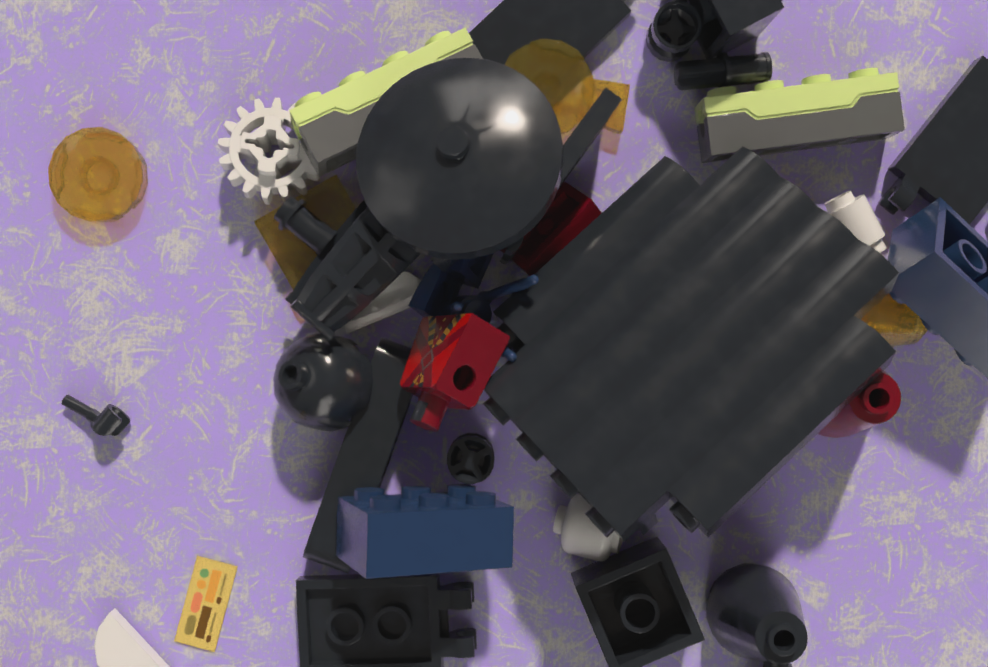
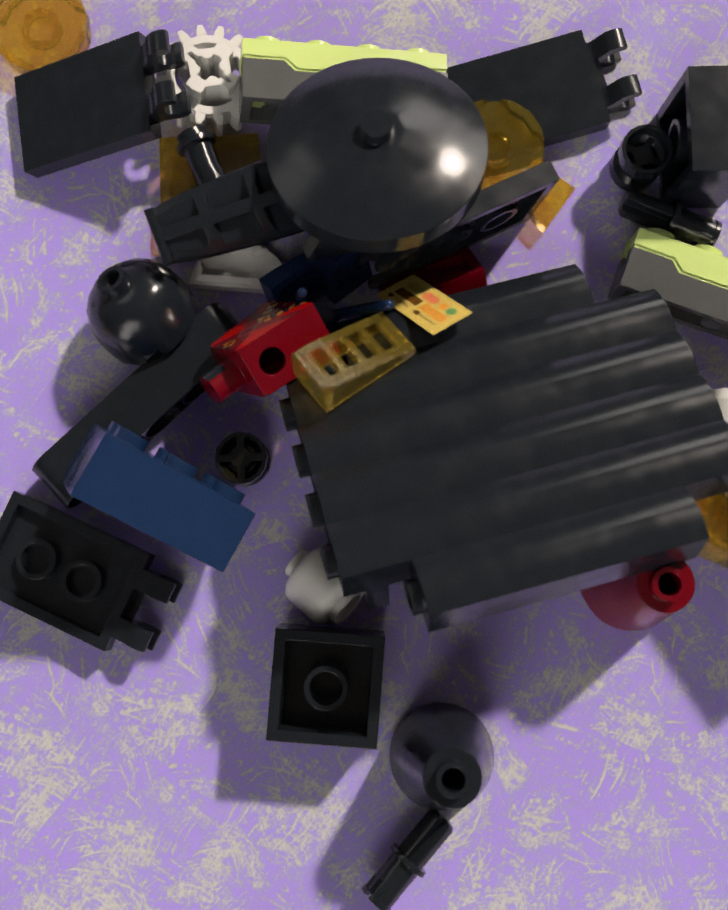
camera: 25 degrees right, 5 degrees down
(187, 221) = (98, 102): none -> black tile
(529, 380) = (333, 390): none -> clear yellow slope
(559, 259) = (424, 304): none -> clear yellow sticker

